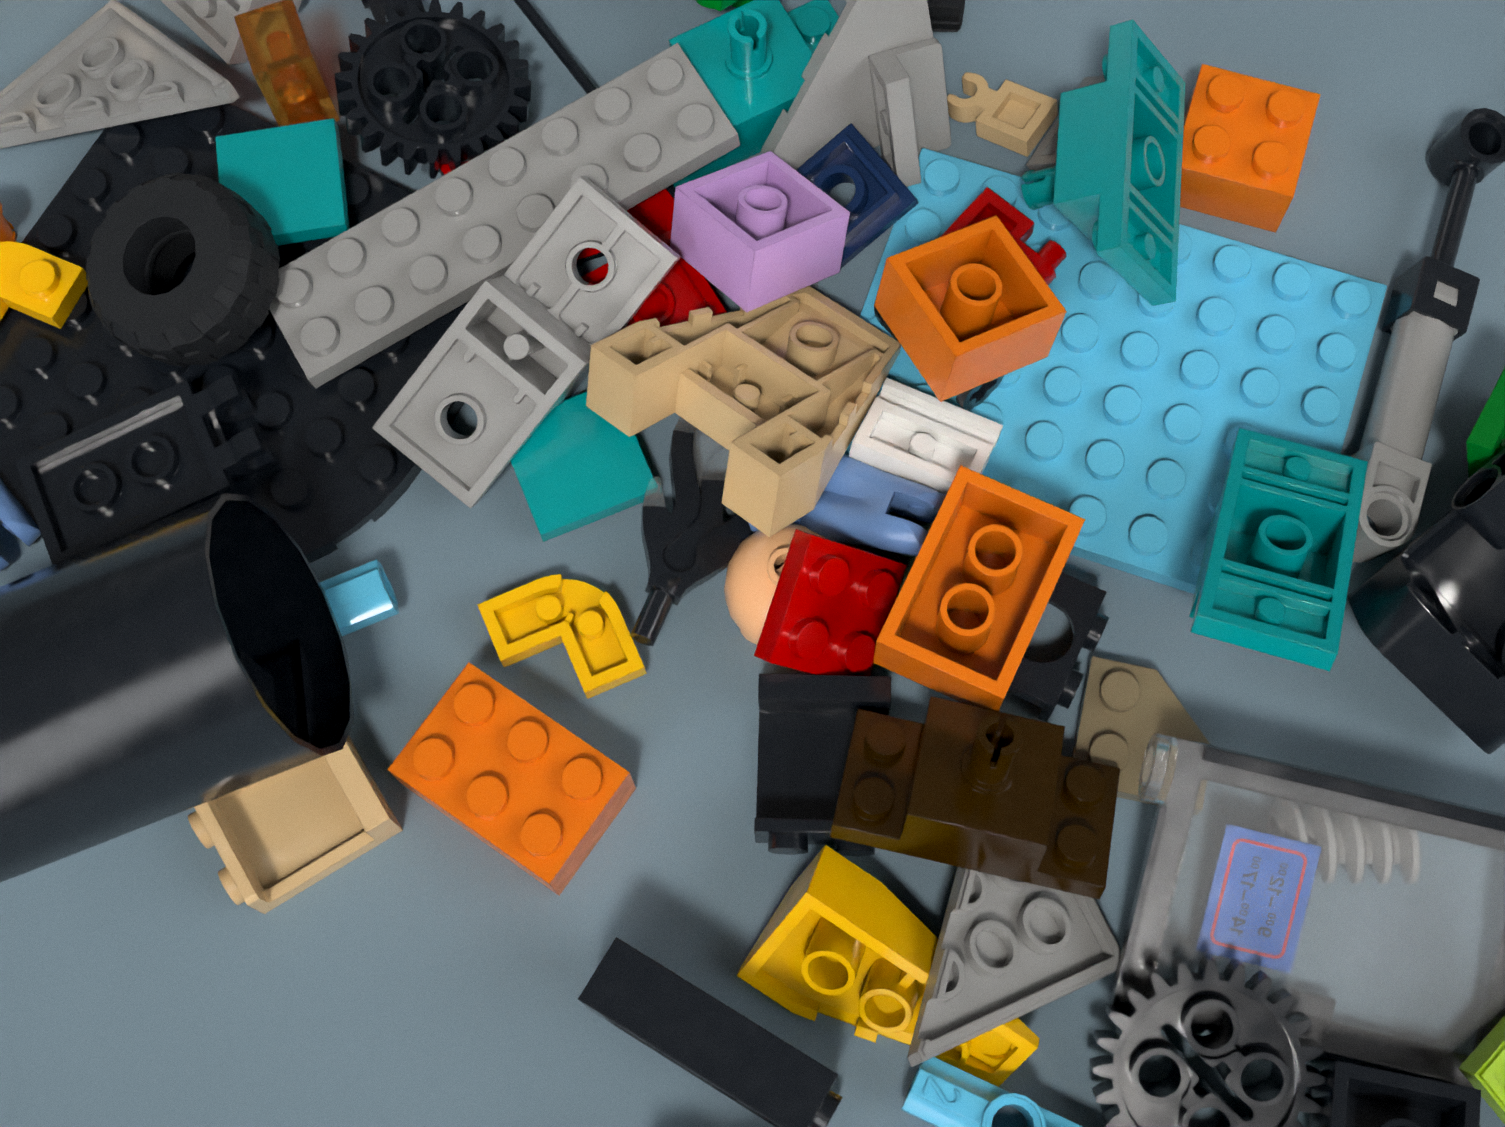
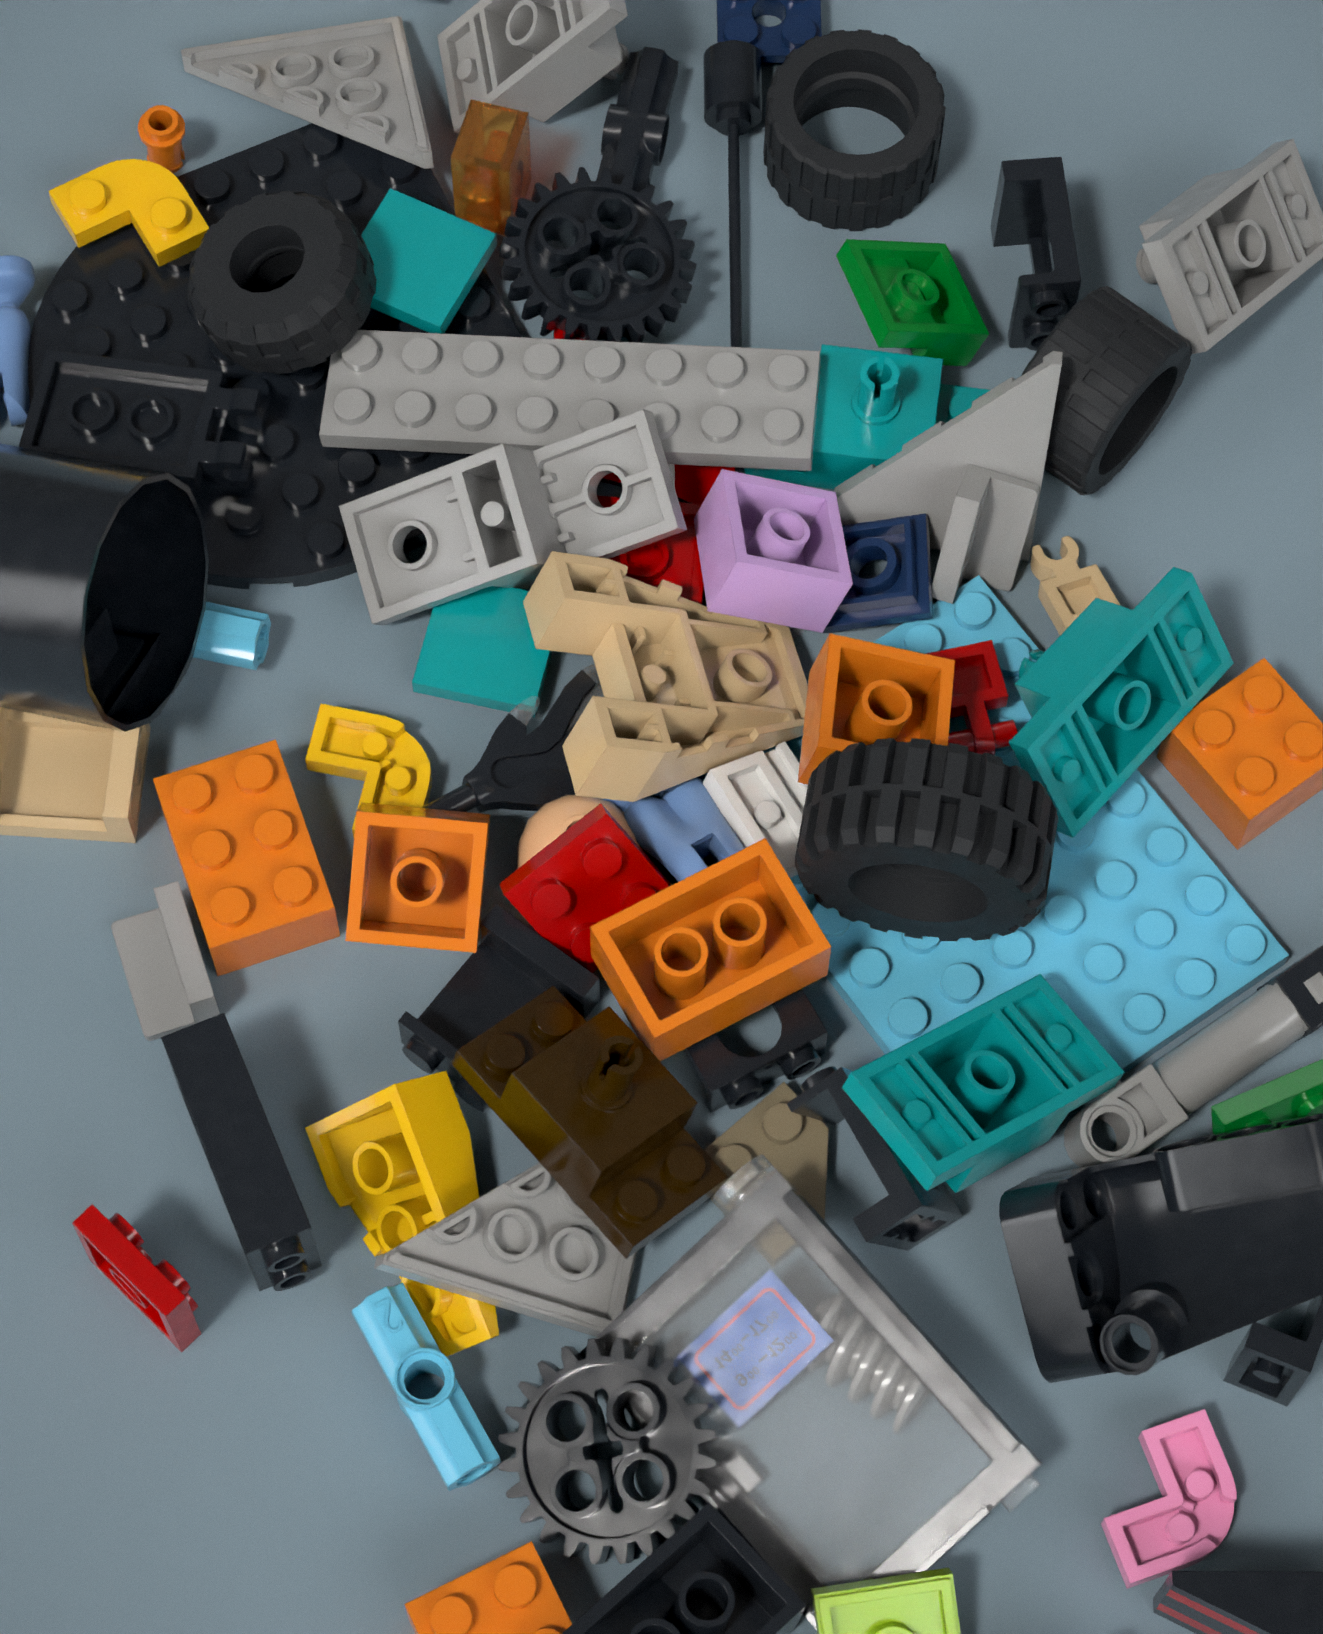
camera: 30 degrees right, 5 degrees down
(511, 920) = (164, 966): none -> light grey panel
(679, 696) = (417, 877): none -> orange brick
(1092, 375) = (926, 840): none -> black tyre
(1294, 683) = (909, 1210): none -> black panel

